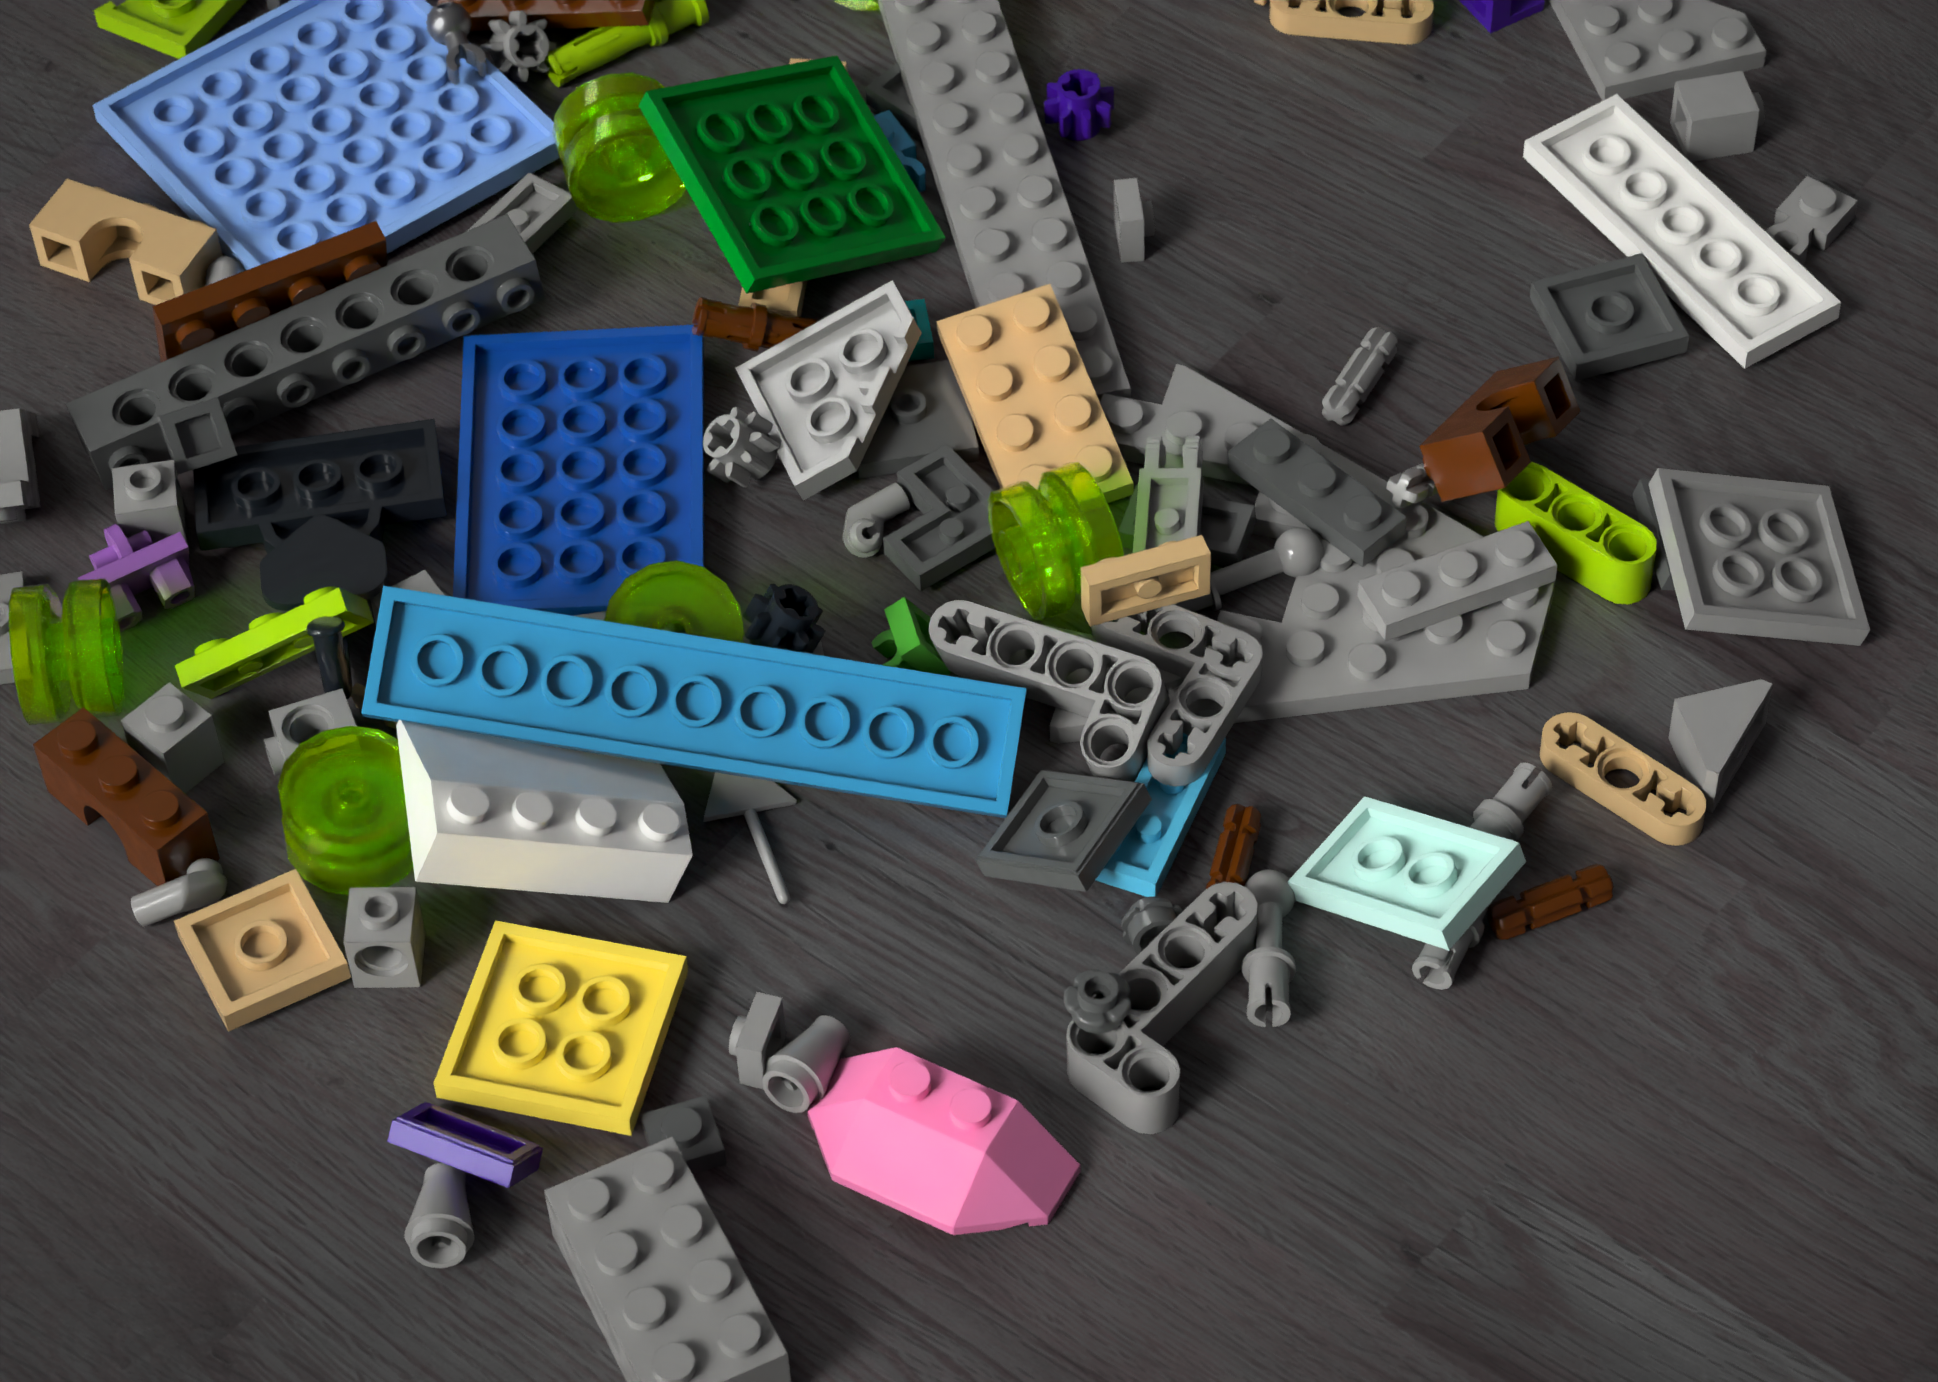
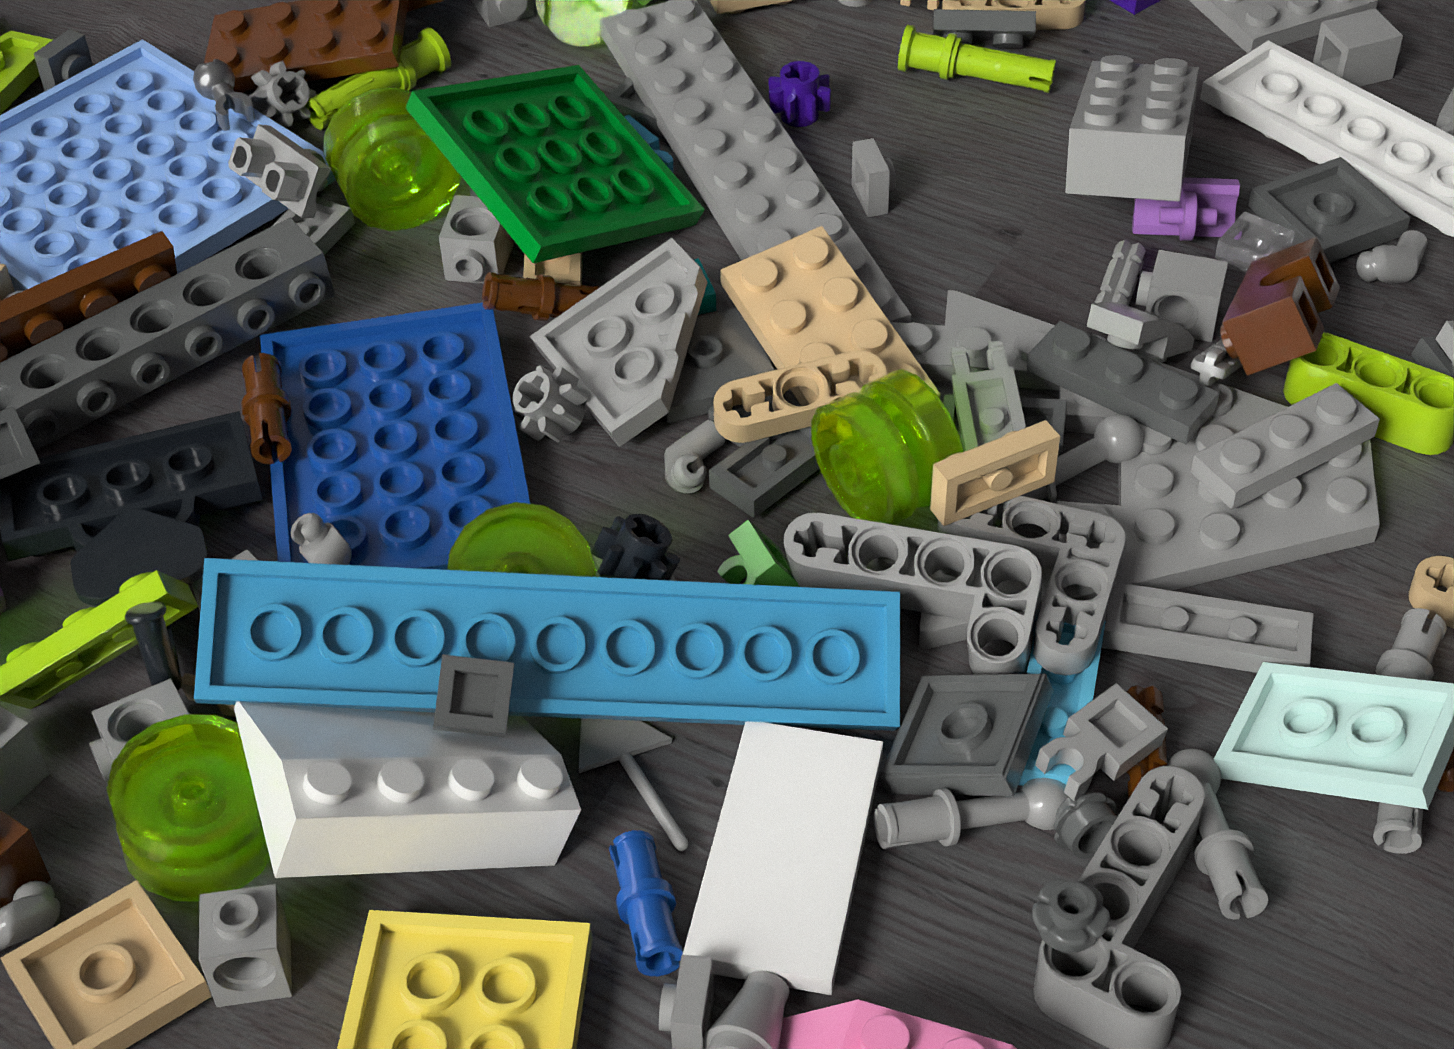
camera: 10 degrees left, 5 degrees down
(460, 421) = (266, 408): none -> reddish brown pin
(495, 573) = (320, 541): none -> light grey arm
(509, 148) = (281, 169): none -> light grey hips
(610, 741) = (473, 696): none -> dark grey plate
(691, 256) = (473, 242): none -> light grey brick
(739, 944) = (646, 903): none -> blue pin
(875, 916) = (786, 855): none -> white tile
(965, 455) = (785, 416): none -> tan beam
(1020, 903) = (944, 817): none -> light grey pin
(1183, 847) = (1103, 735): none -> light grey plate
(1259, 75) = (952, 57): none -> lime pin
(1280, 37) = (1004, 27): none -> dark grey plate
(1322, 757) = (1206, 629): none -> light grey plate
(1345, 432) = (1139, 331): none -> light grey slope
(1414, 201) = (1132, 129): none -> light grey brick
(1415, 396) = (1184, 291): none -> light grey brick
(1454, 293) = (1204, 210): none -> medium lavender hips
(1514, 342) = (1252, 239): none -> clear plate
(1660, 386) = (1393, 263): none -> light grey arm

